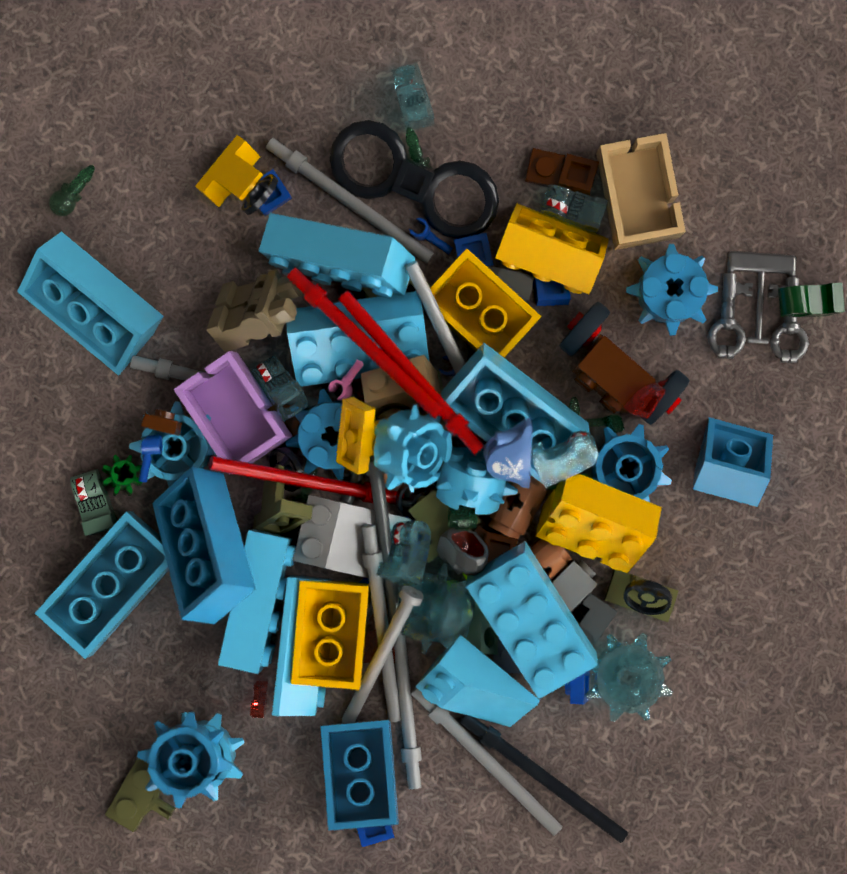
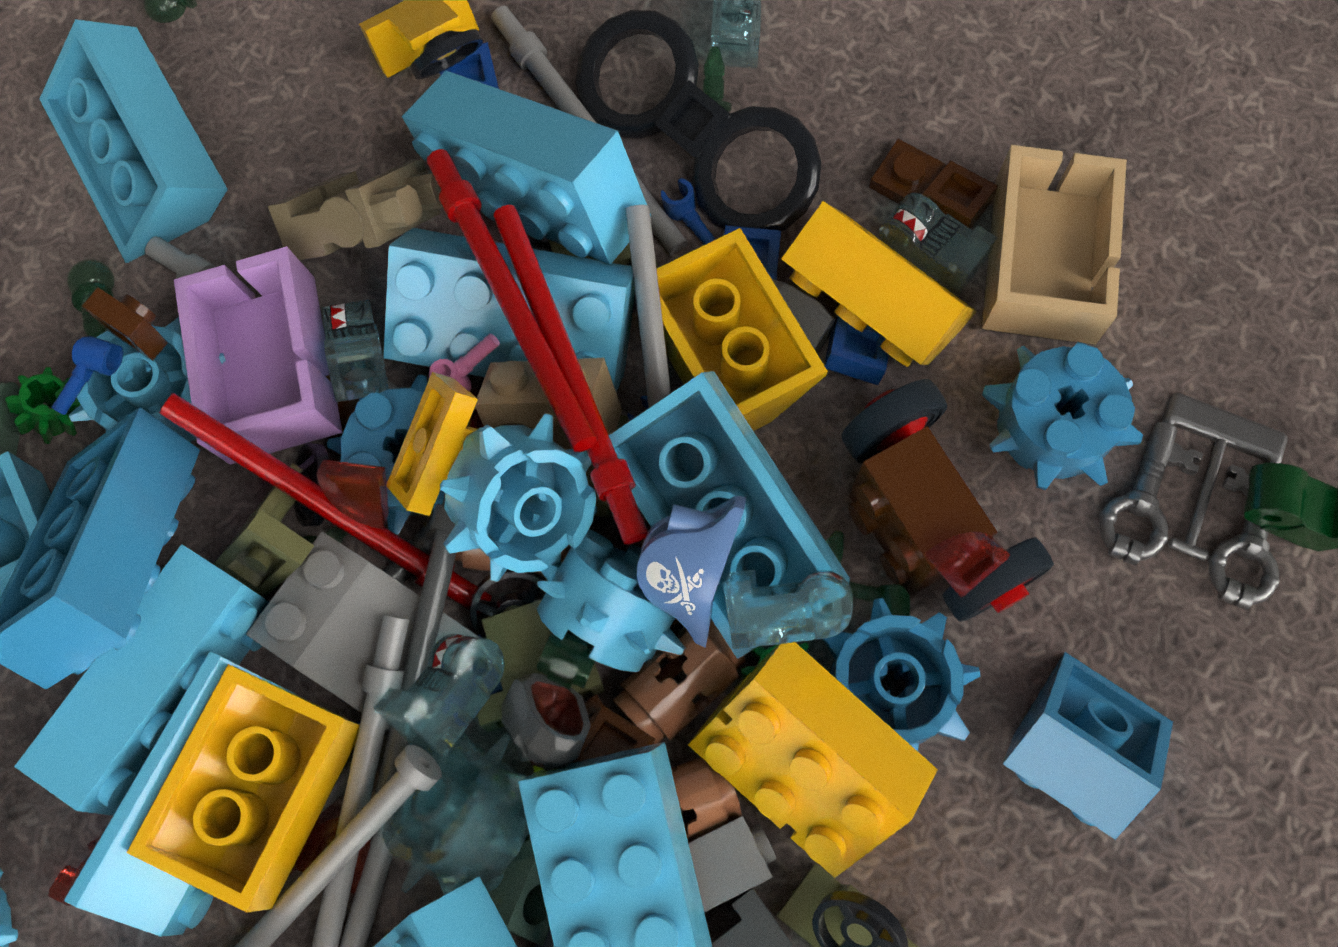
camera: 25 degrees right, 15 degrees down
(106, 395) = (82, 282): none -> clear green bar
(321, 469) = (356, 490): none -> clear red tile

